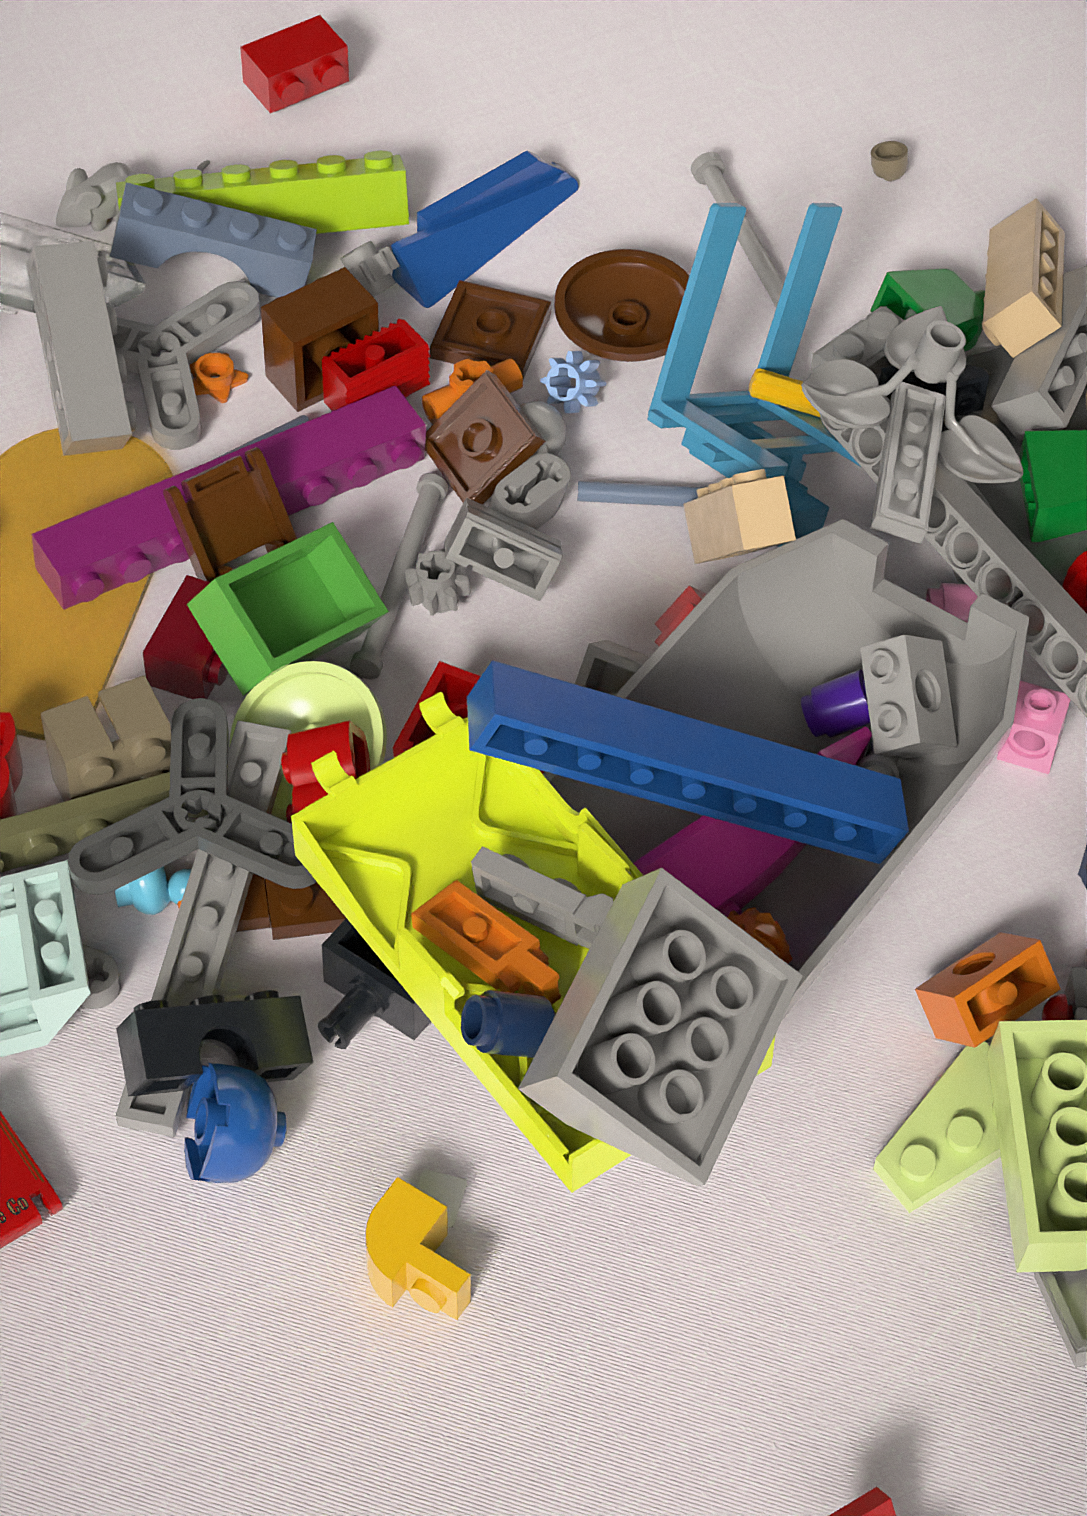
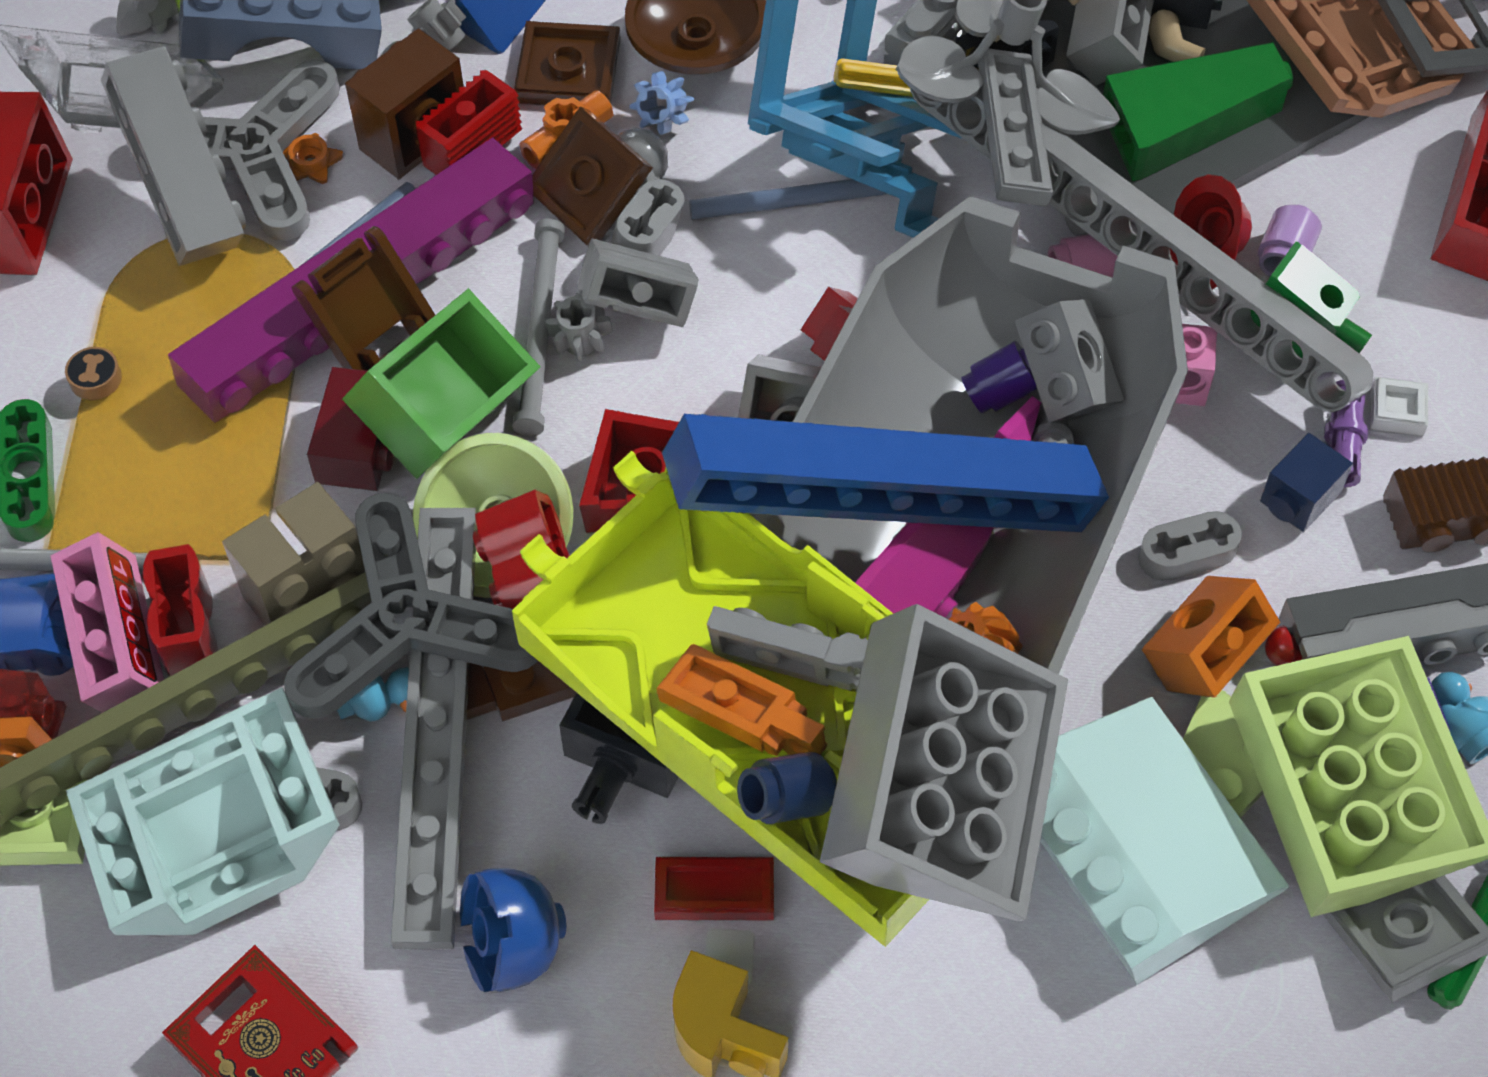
camera: 10 degrees left, 5 degrees up
(259, 1033) = (427, 862): black arch -> none
(438, 1132) = (714, 888): none -> red tile
(739, 516) = (864, 211): tan brick -> none
(868, 1162) = (1150, 839): none -> light aqua slope
(994, 903) = (1191, 549): none -> light grey beam

